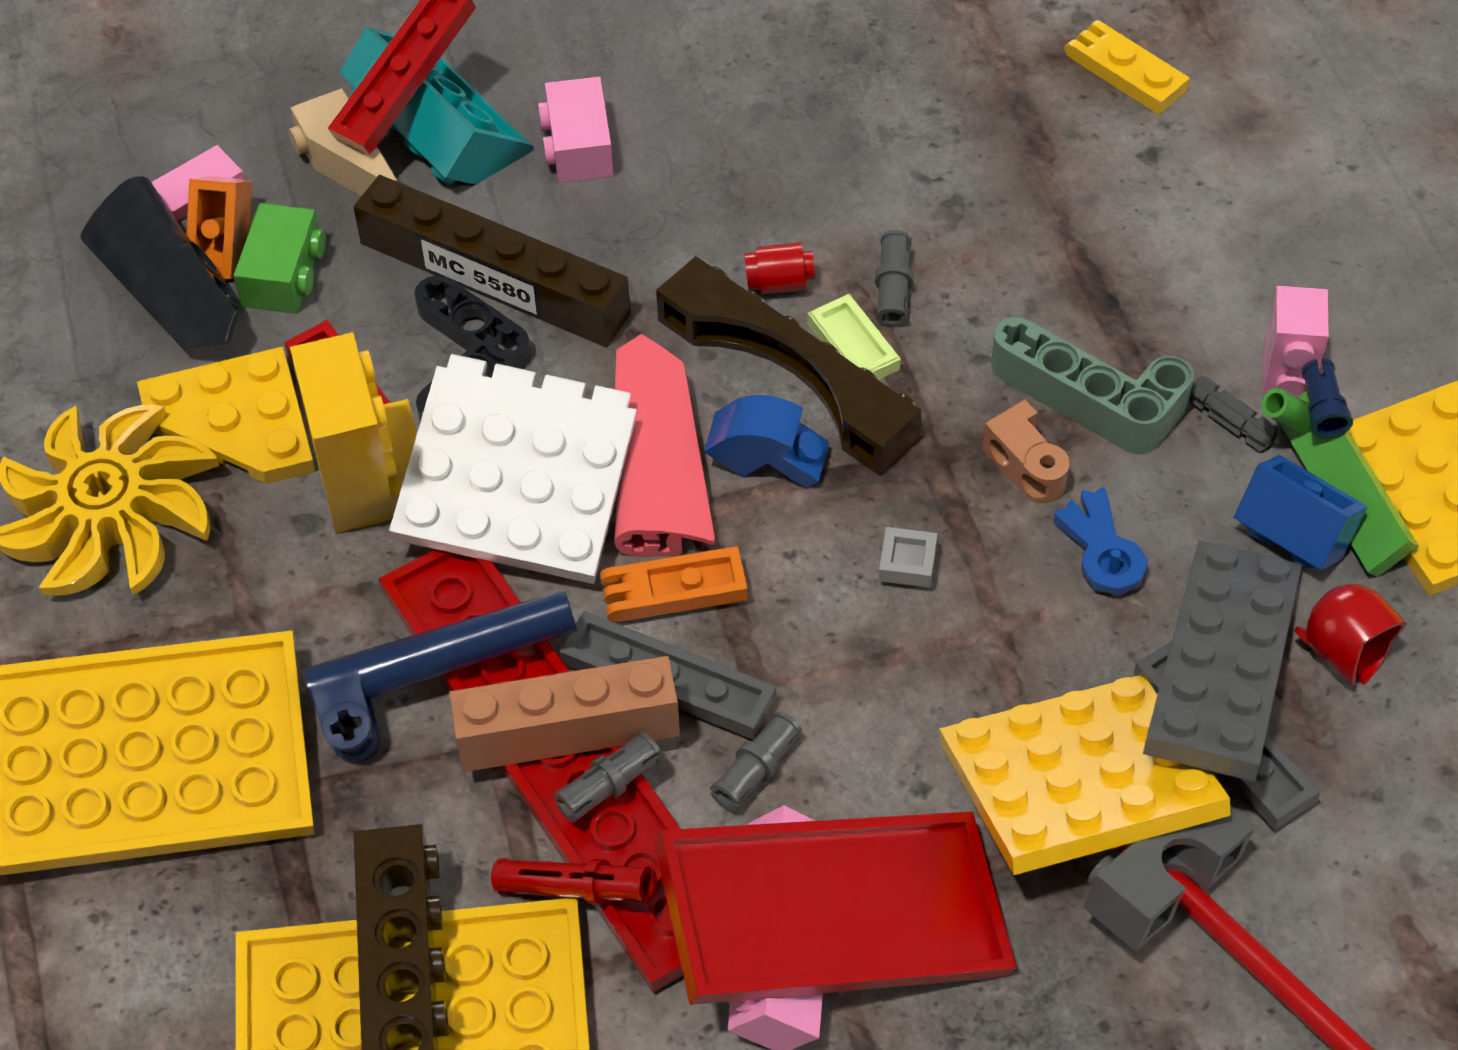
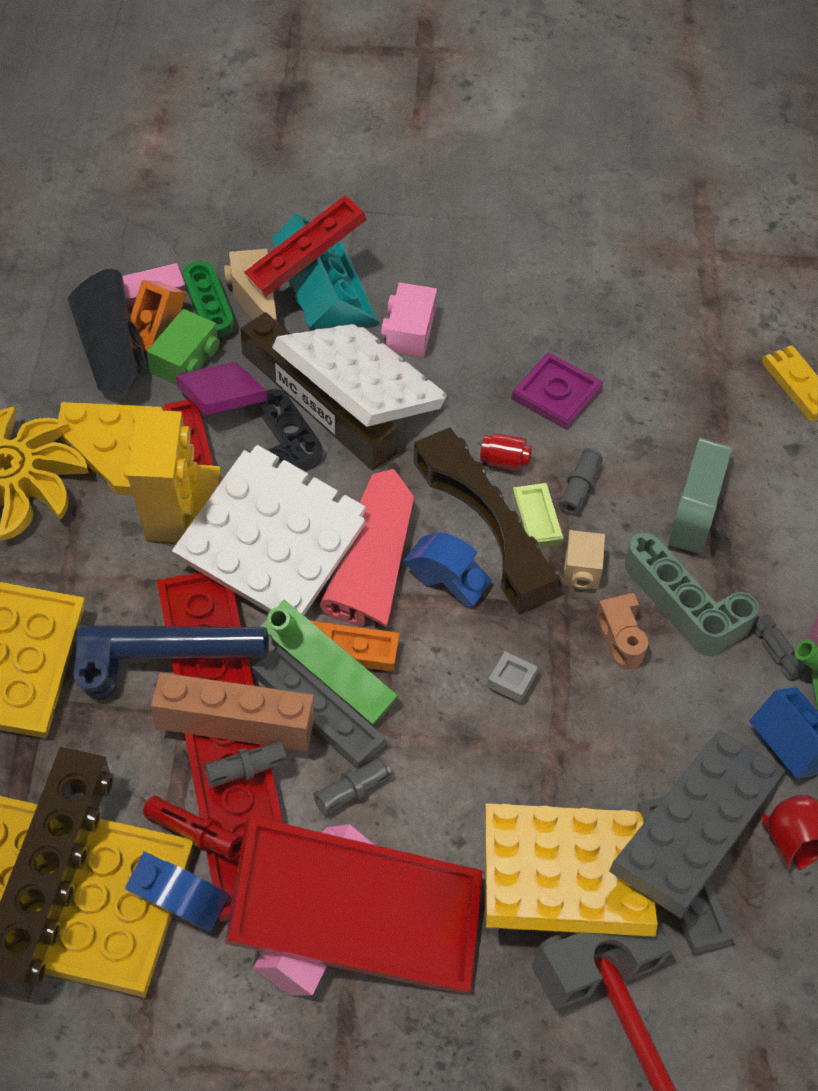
camera: 15 degrees right, 0 degrees up
(278, 170) = (208, 296): none -> green plate
(356, 296) = (221, 388): none -> magenta tile
(545, 219) = (360, 373): none -> white hinge
(587, 964) = (177, 891): none -> blue brick
(661, 611) = (329, 662): none -> bright green piece
(812, 168) = (557, 390): none -> magenta tile
(940, 378) = (584, 559): none -> tan brick
(1058, 255) = (700, 496): none -> sand green beam
(1109, 561) = (650, 724): blue piece -> none

